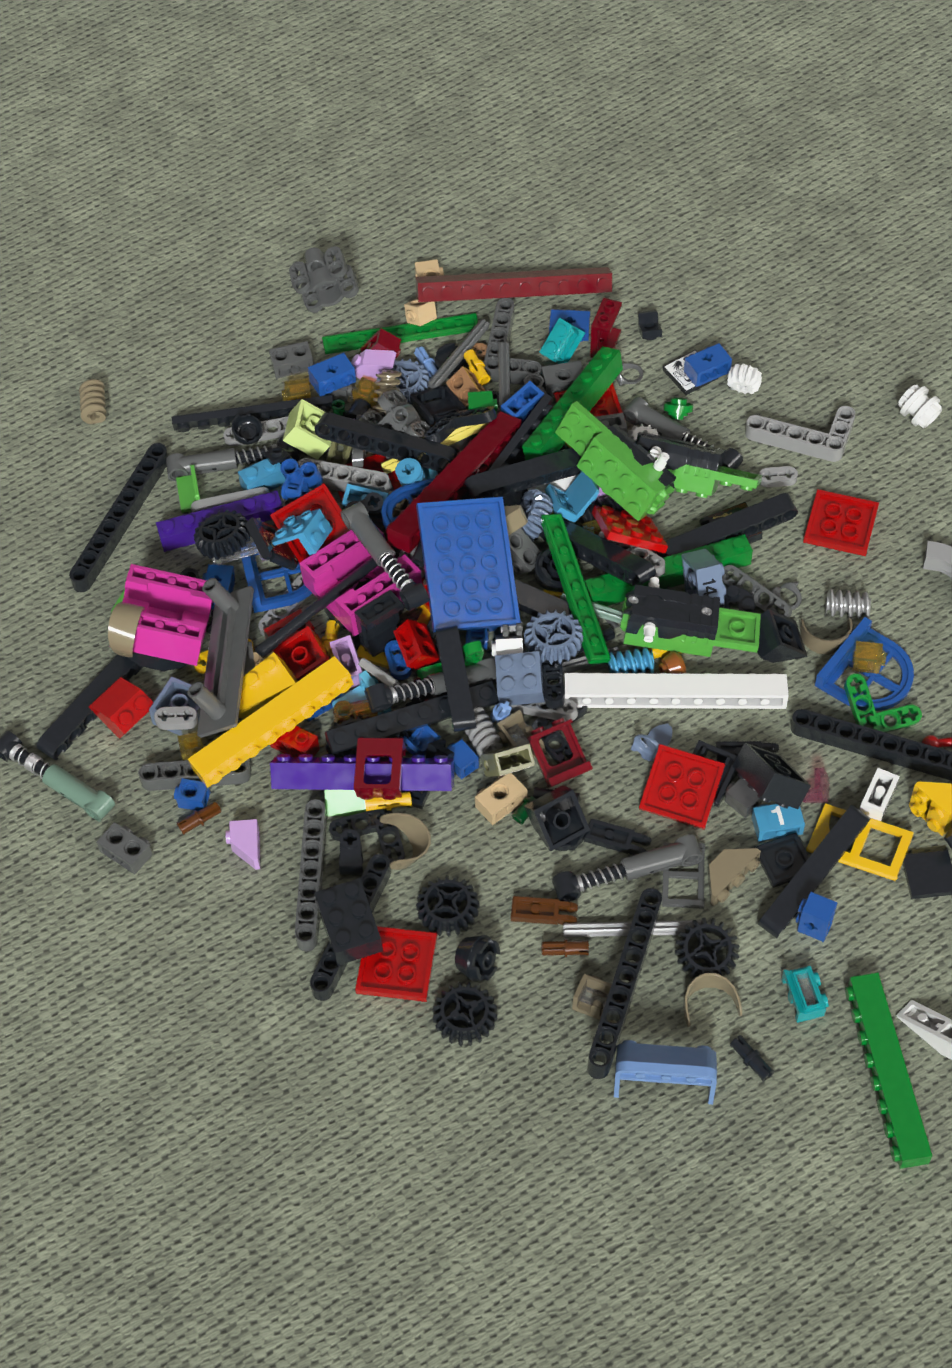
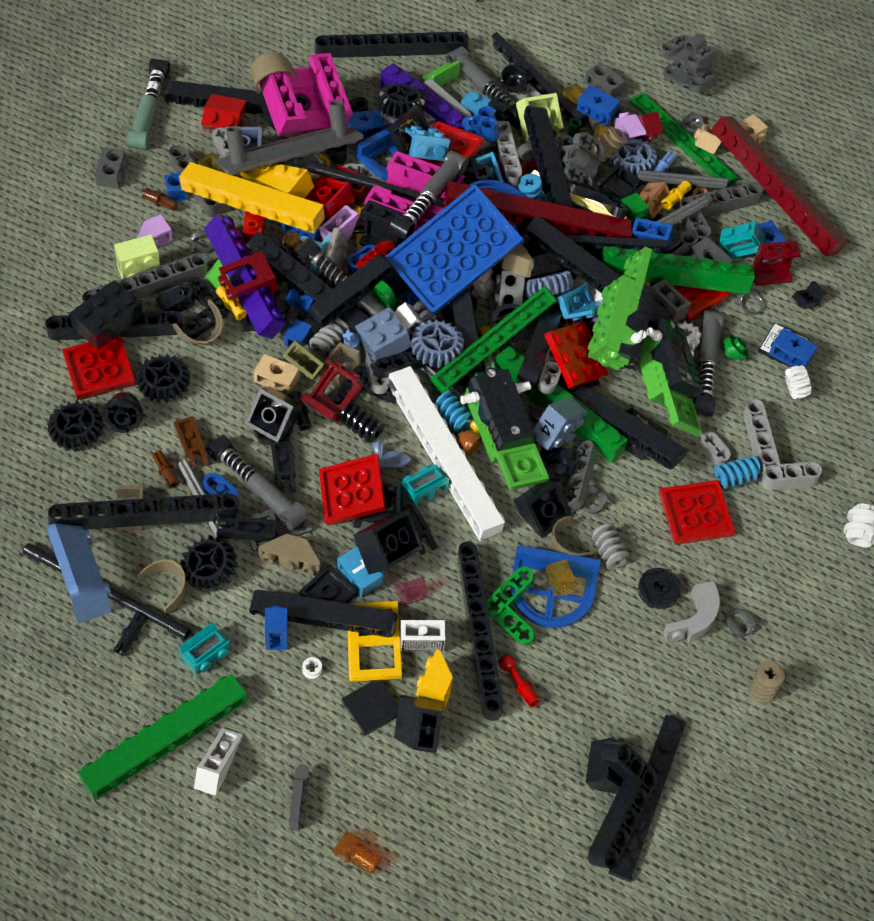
camera: 55 degrees right, 0 degrees up
(280, 809) = (194, 245): none -> dark grey piece
(281, 867) = (136, 256): none -> yellowish green brick
(388, 310) = (685, 120): none -> dark grey piece
(604, 744) = (360, 424): none -> black piece
(615, 1108) = (170, 625): none -> black piece
(616, 906) = (222, 487): none -> blue plate
(684, 897) = (247, 528): none -> black hinge
(703, 722) = (424, 483): none -> teal window
(817, 469) = (736, 471): none -> dark azure piece
(858, 910) = (306, 664): none -> white bush
(904, 598) = (657, 599): none -> black plate

